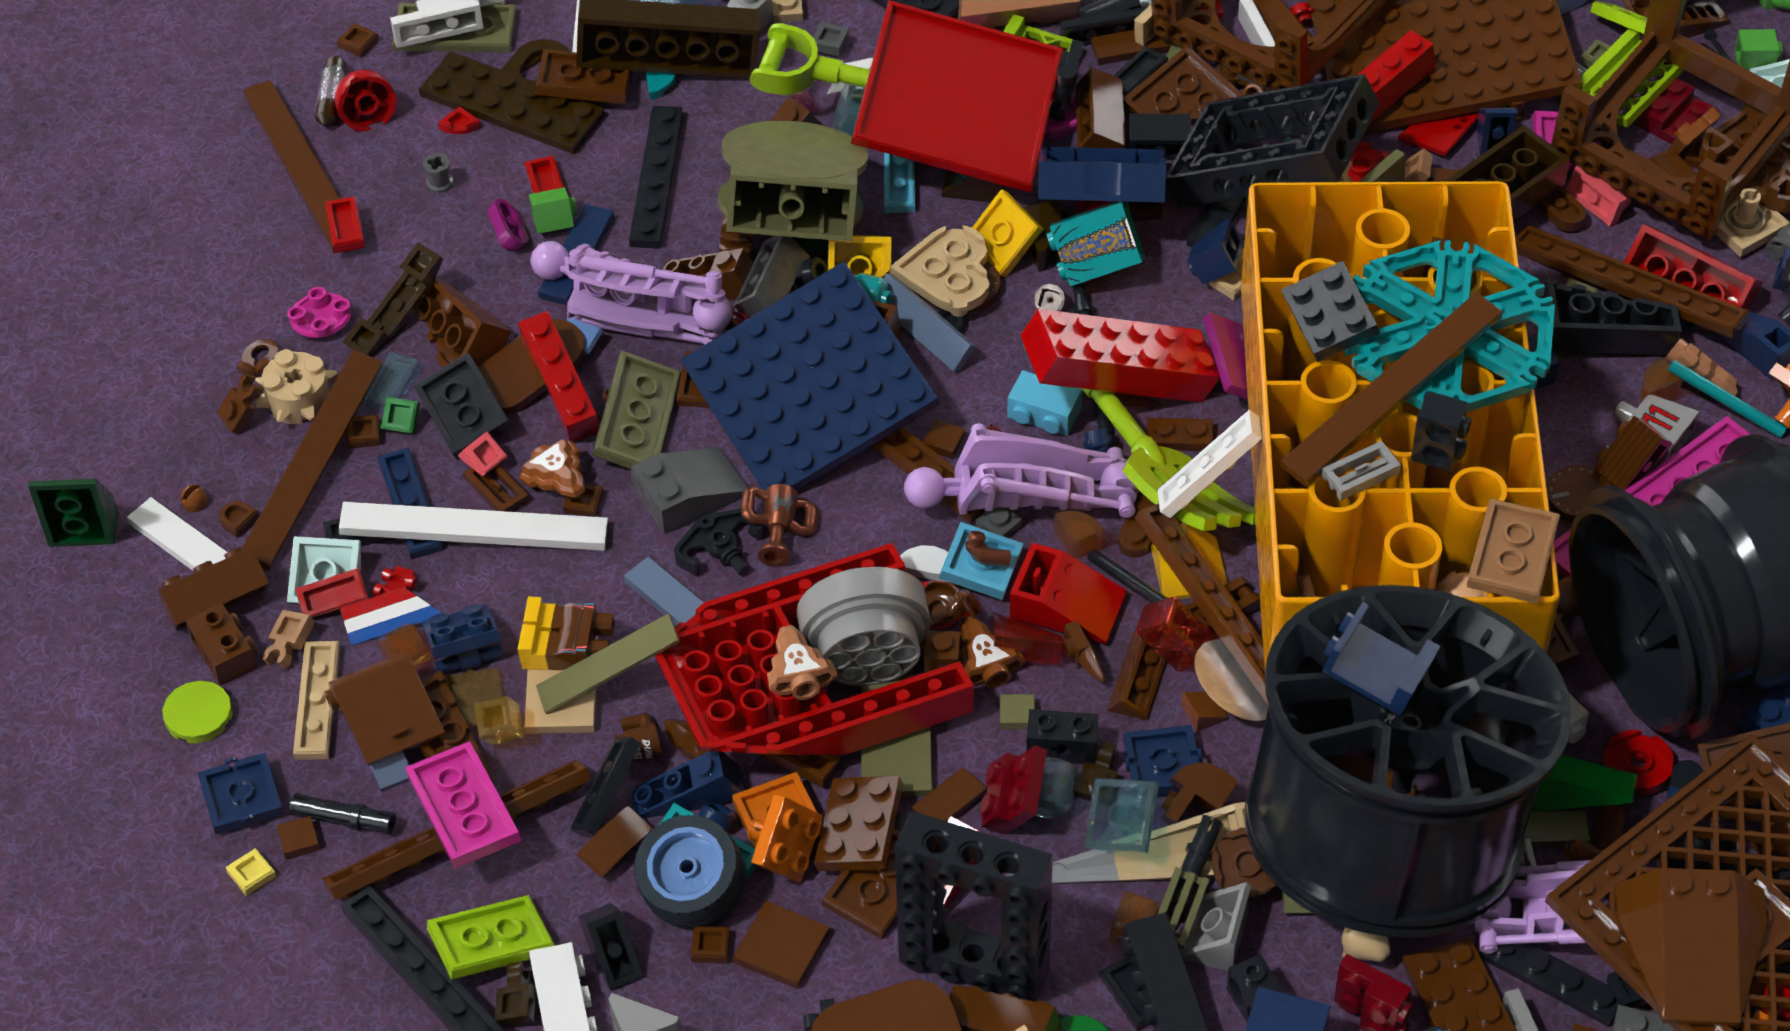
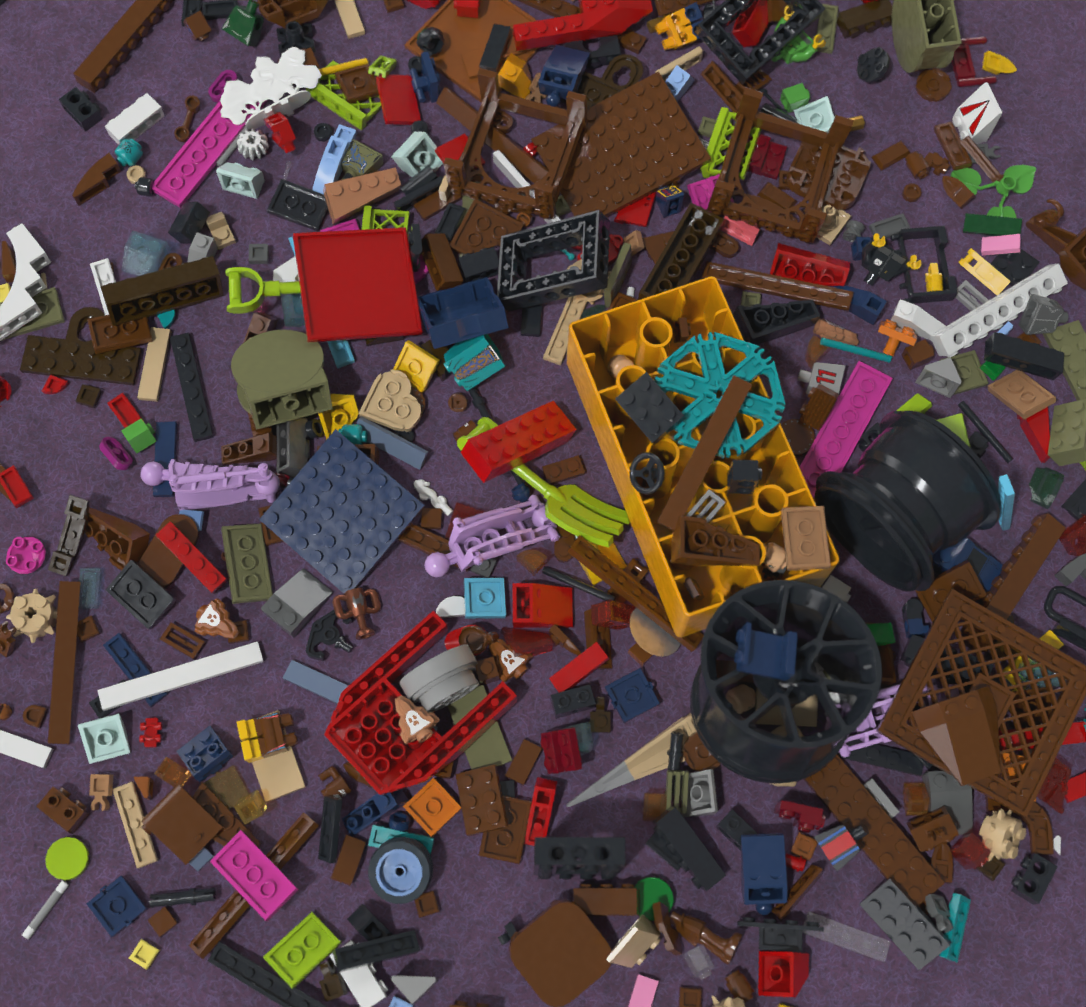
camera: 25 degrees left, 20 degrees up
(134, 767) = (45, 910): none -> light grey bar
(211, 584) = (42, 775): reddish brown brick -> none
(332, 593) = (115, 752): red tile -> none
(356, 648) = (146, 786): none -> dark orange slope
(383, 614) = (152, 754): sticker -> none
(400, 415) = (105, 612): green tile -> none
(437, 169) = (53, 425): dark grey bush -> none
(483, 454) = (167, 624): coral slope -> none
(501, 148) = (88, 396): none -> dark brown tile
(603, 967) = (376, 951): none -> black plate
(607, 663) = (301, 750): olive piece -> none
(614, 135) = (154, 365): none -> tan tile
(781, 944) = (466, 890): reddish brown tile -> none
(785, 838) = (446, 830): orange plate -> none
(950, 403) = (426, 493): none -> white animal
(985, 554) = (485, 596): copper arm -> none
(1015, 711) = (539, 690): olive tile -> none
(1044, 405) = (471, 482): medium azure brick -> none
(1097, 692) = (579, 668): none -> red tile
(1121, 815) = (626, 746): clear light blue slope -> none
(1199, 782) = (659, 708): reddish brown brick -> none
(1210, 464) = (604, 513): white plate -> none
(1216, 253) = (542, 340): dark blue slope -> none
(1229, 352) = (574, 409): magenta tile -> none
(1297, 395) = (651, 473): none -> black piece
(1344, 510) = (704, 544): none -> reddish brown wedge
(1399, 69) = (597, 191): red wedge -> none
(1619, 15) = (718, 99): lime tile -> none
(1653, 751) = (883, 594): red plate -> none
(1689, 133) = (778, 172): dark orange plate -> none

